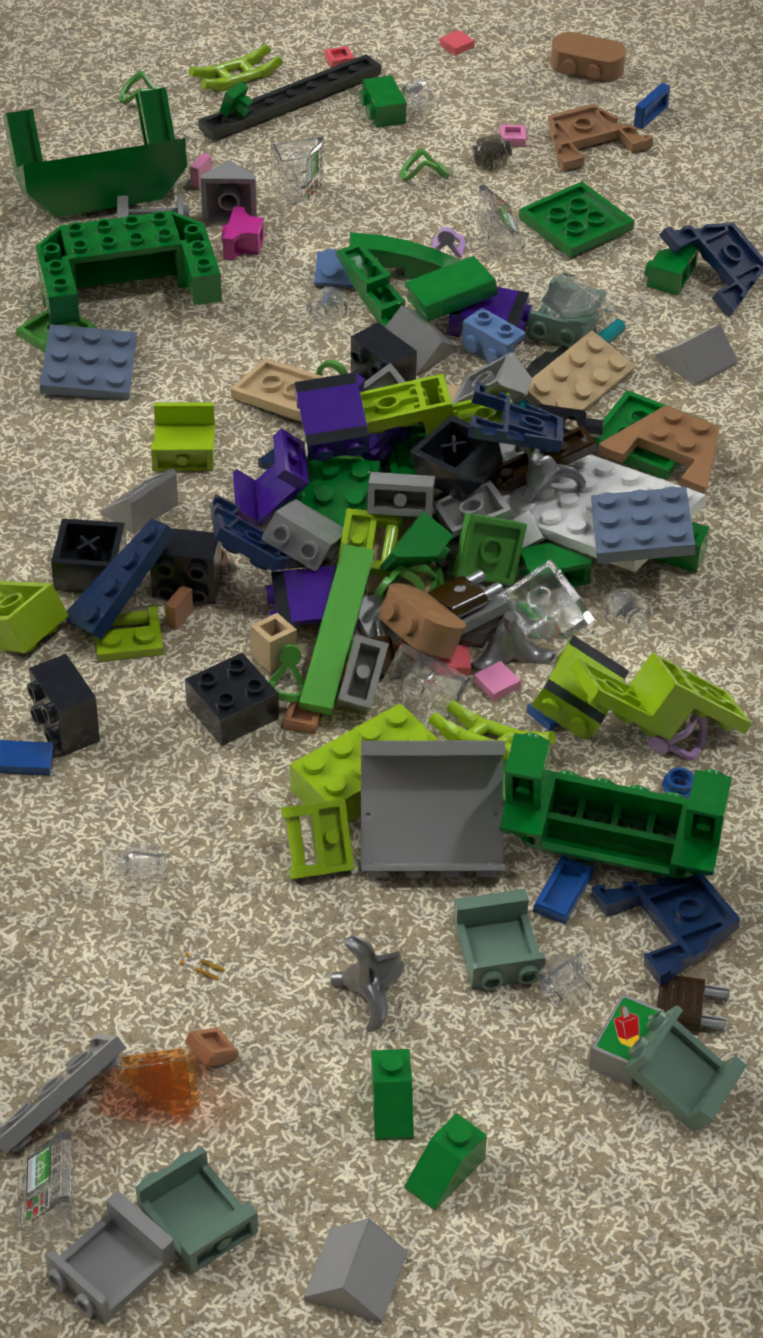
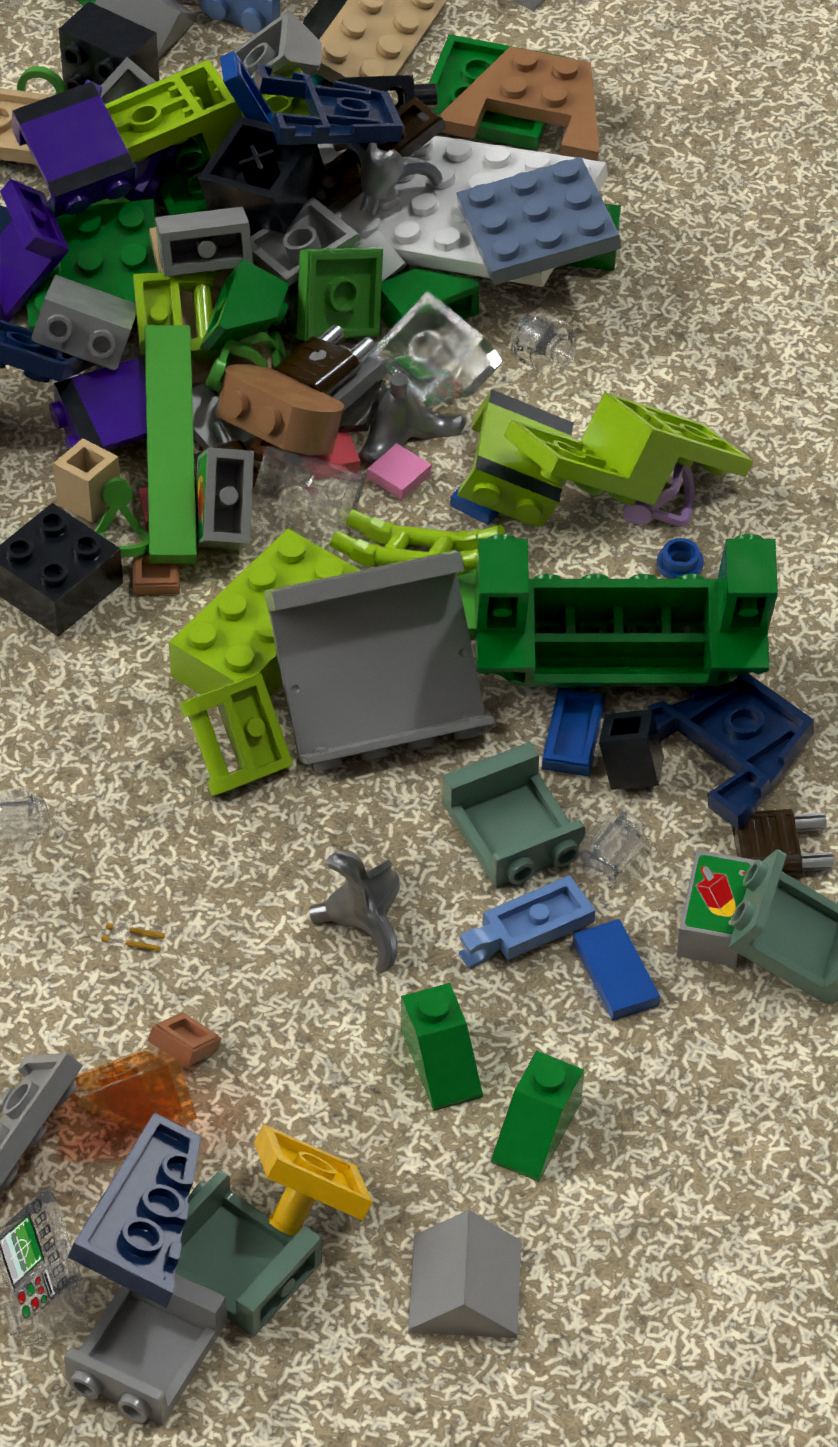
camera: 15 degrees left, 5 degrees up
(130, 1164) = (142, 1213): none -> wing
(261, 1166) = (308, 1177): none -> yellow tile
(458, 396) = (244, 89): none -> blue tile
(485, 1019) = (528, 922): none -> medium blue plate
(540, 1068) = (616, 969): none -> blue tile
(598, 910) = (631, 749): none -> black brick

